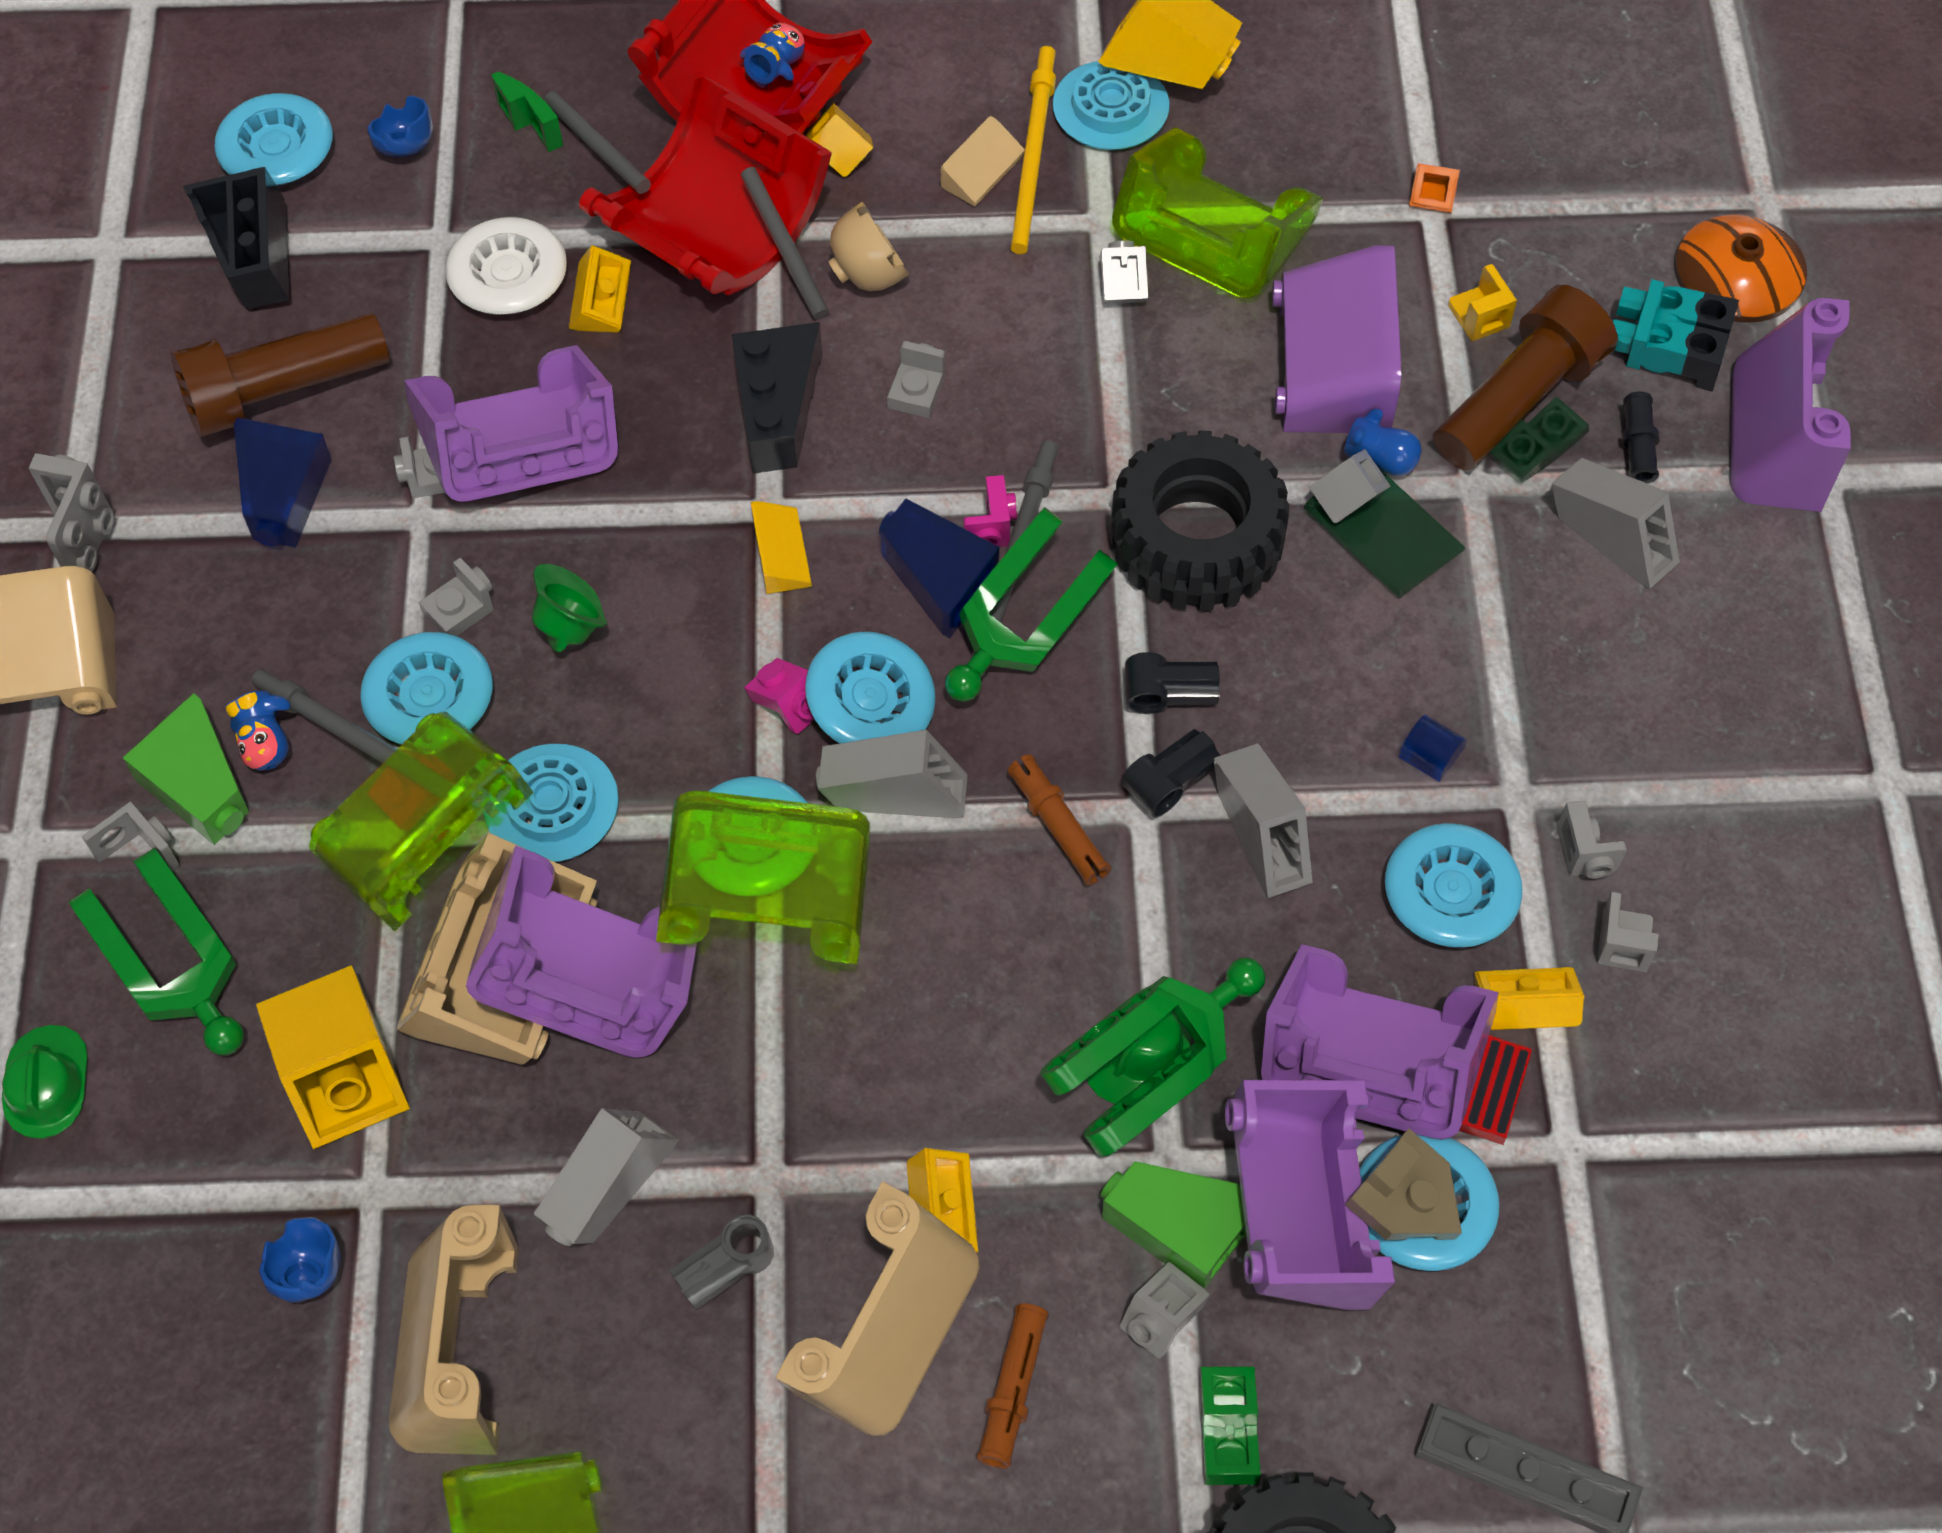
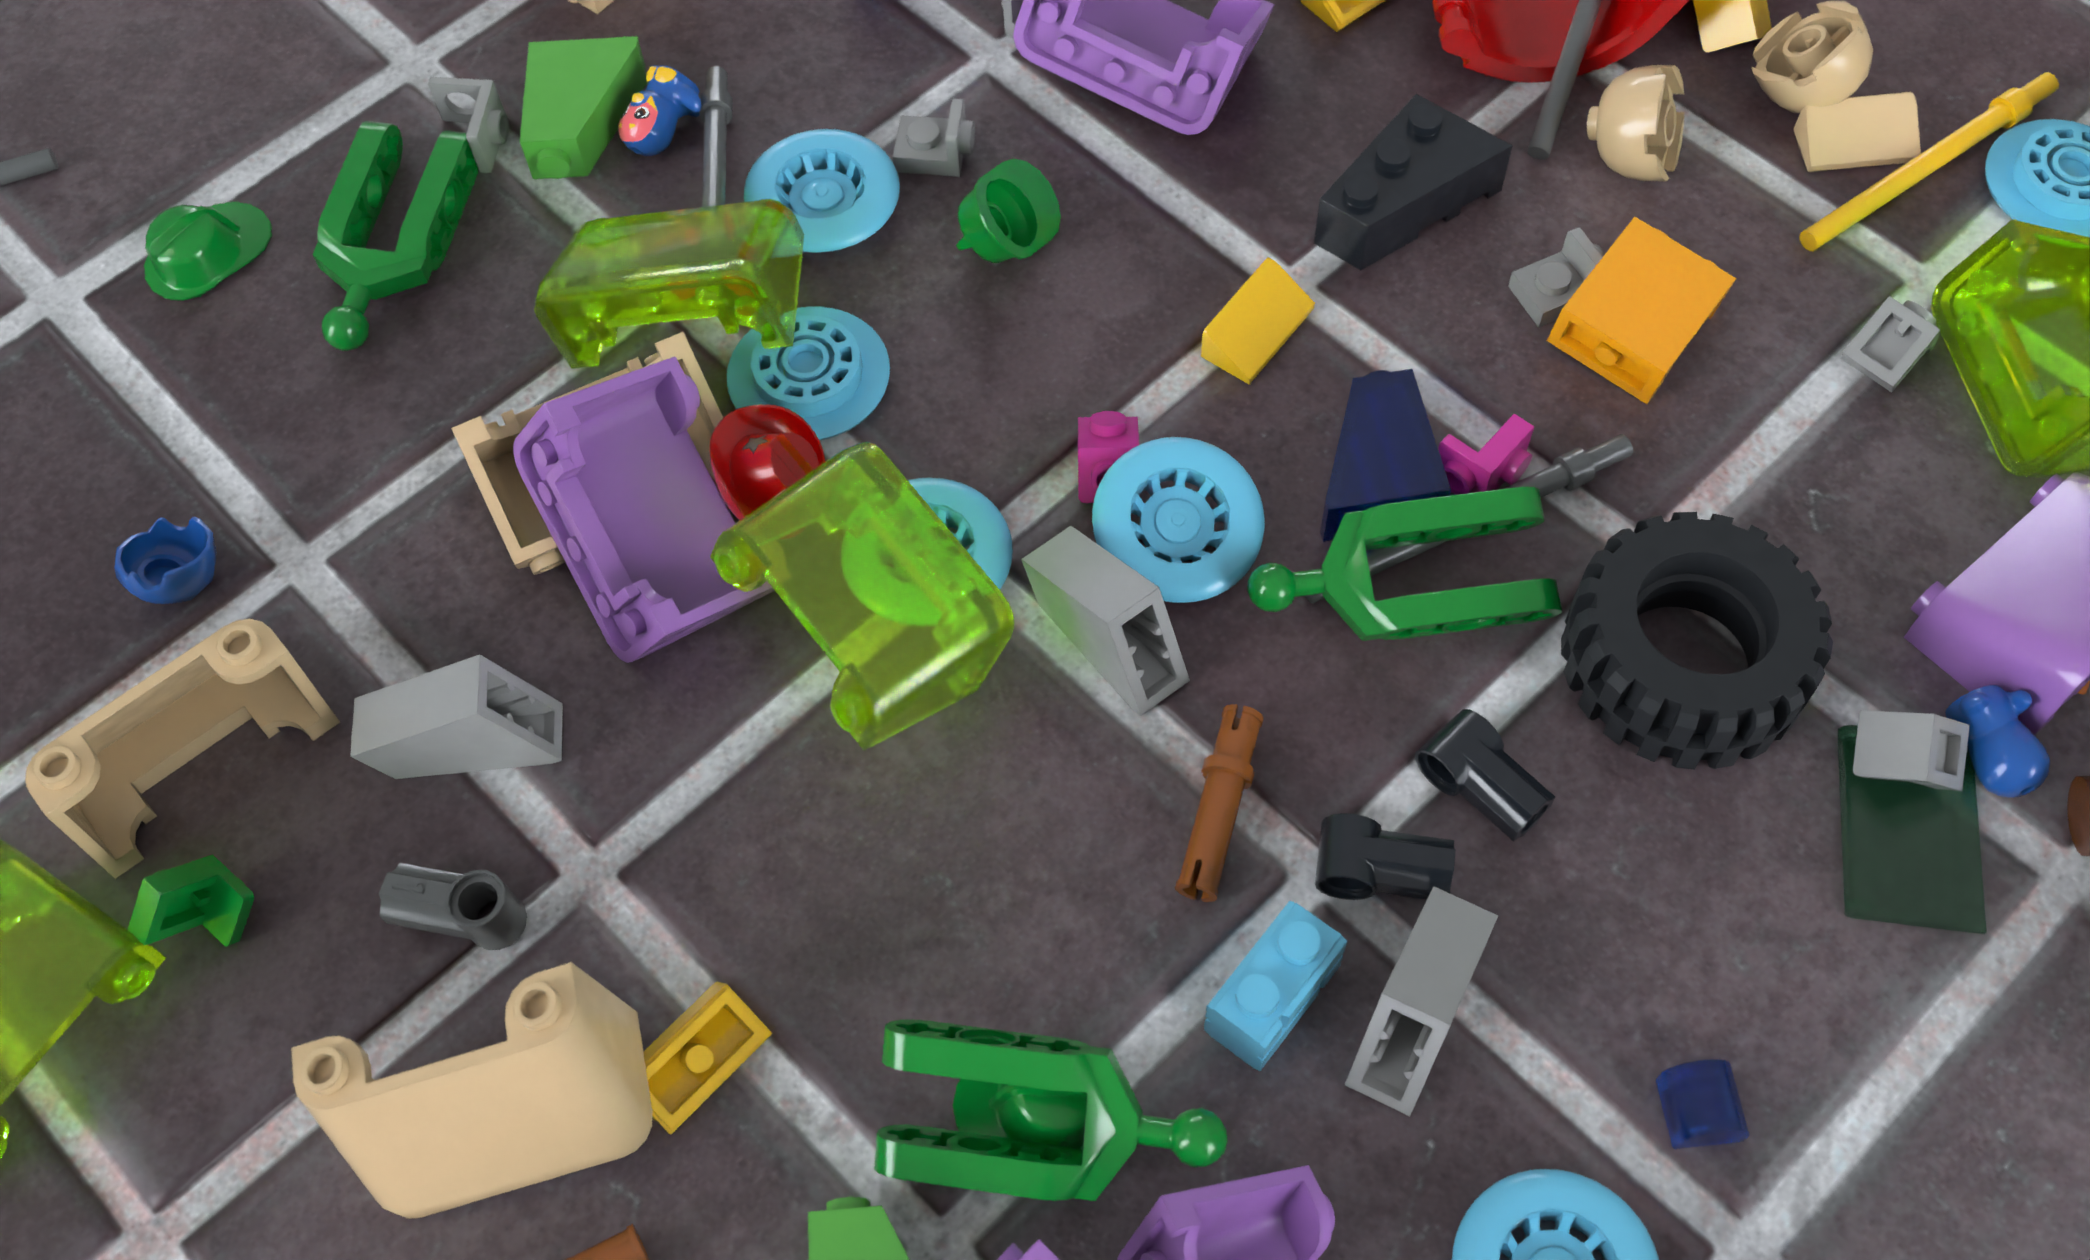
camera: 50 degrees right, 0 degrees up
(331, 1057) = (383, 416): yellow slope -> none
(580, 1397) = (189, 897): none -> green bracket
(614, 868) = (760, 454): none -> red hat
(919, 135) = (1814, 57): none -> tan cylinder
(983, 361) = (1640, 309): none -> light orange panel
(1190, 880) = (1274, 985): none -> medium azure brick

